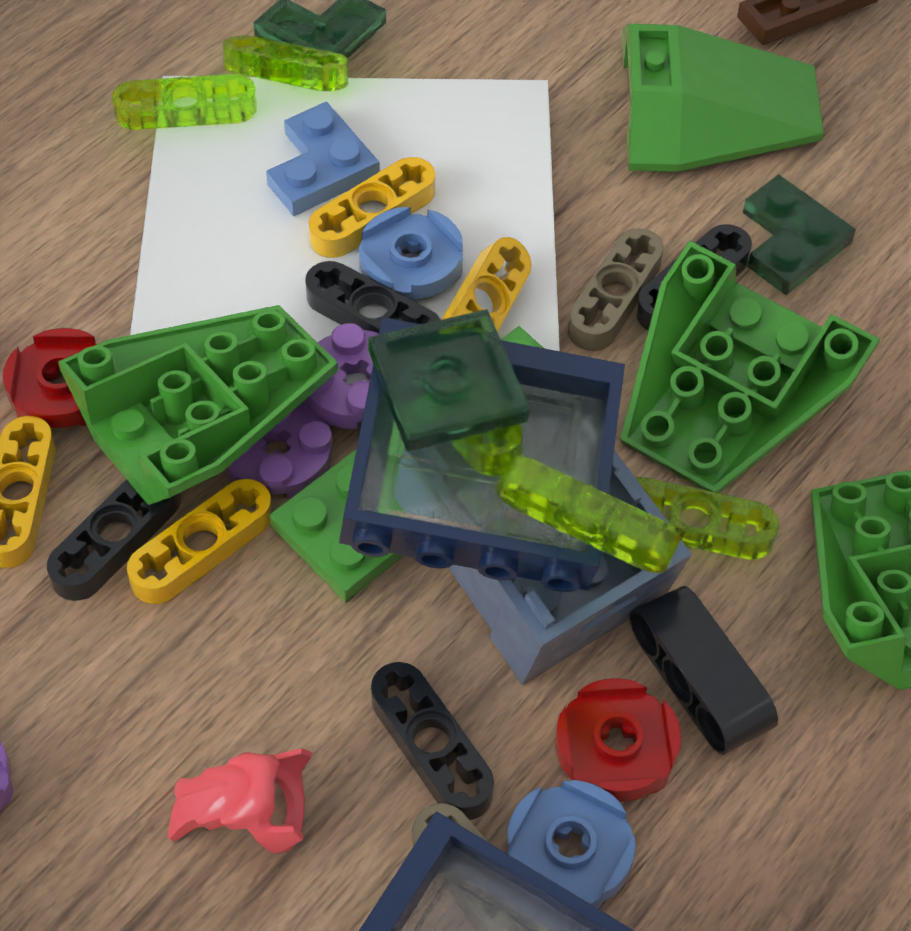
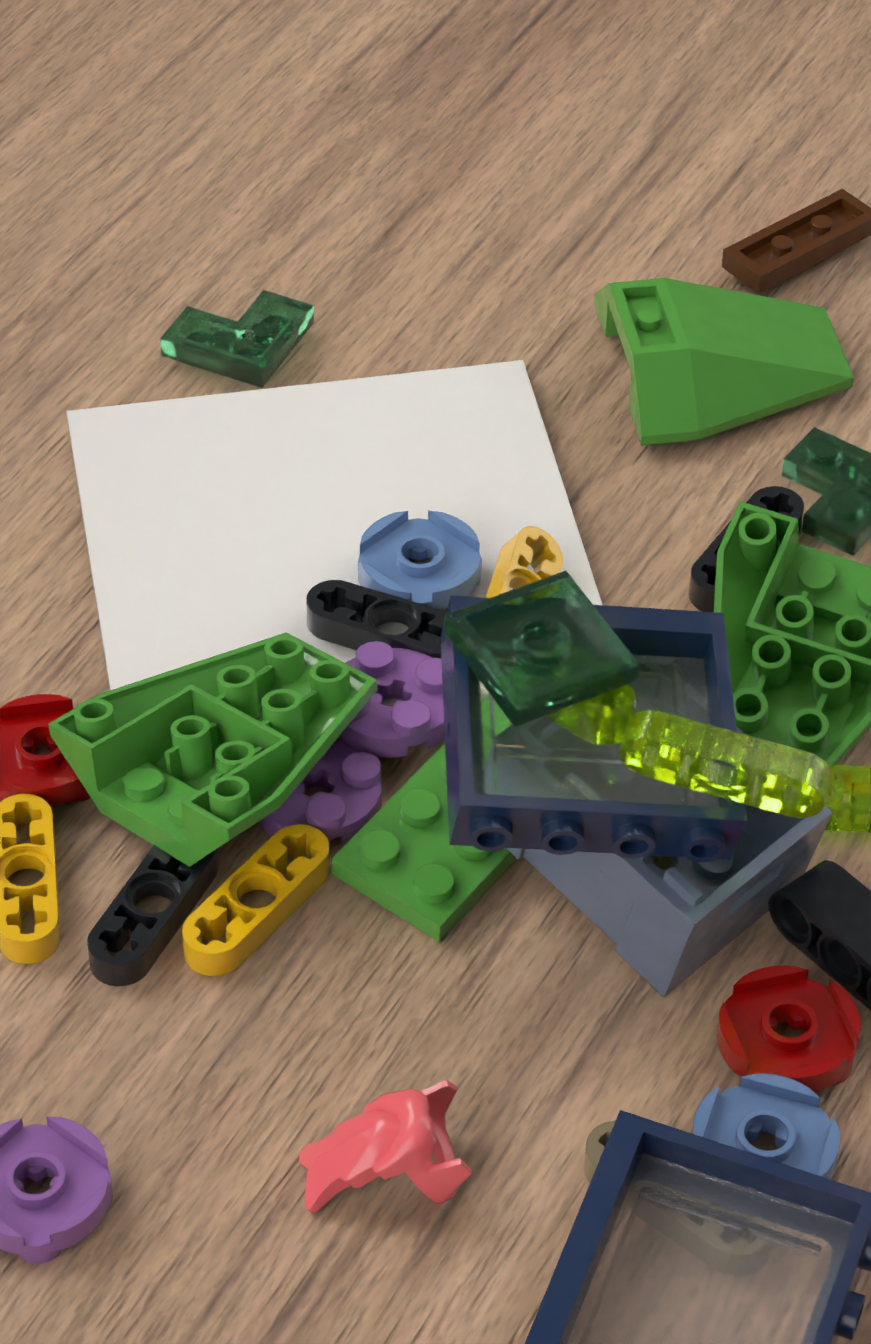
camera: 10 degrees left, 10 degrees down
(167, 90) = (88, 451): clear neon green beam -> none
(285, 63) = (211, 377): clear neon green beam -> none
(329, 164) = (291, 480): medium blue plate -> none
(380, 187) = (365, 496): yellow beam -> none
(431, 713) = (569, 1035): black beam -> none
(615, 308) = (656, 551): dark tan beam -> none

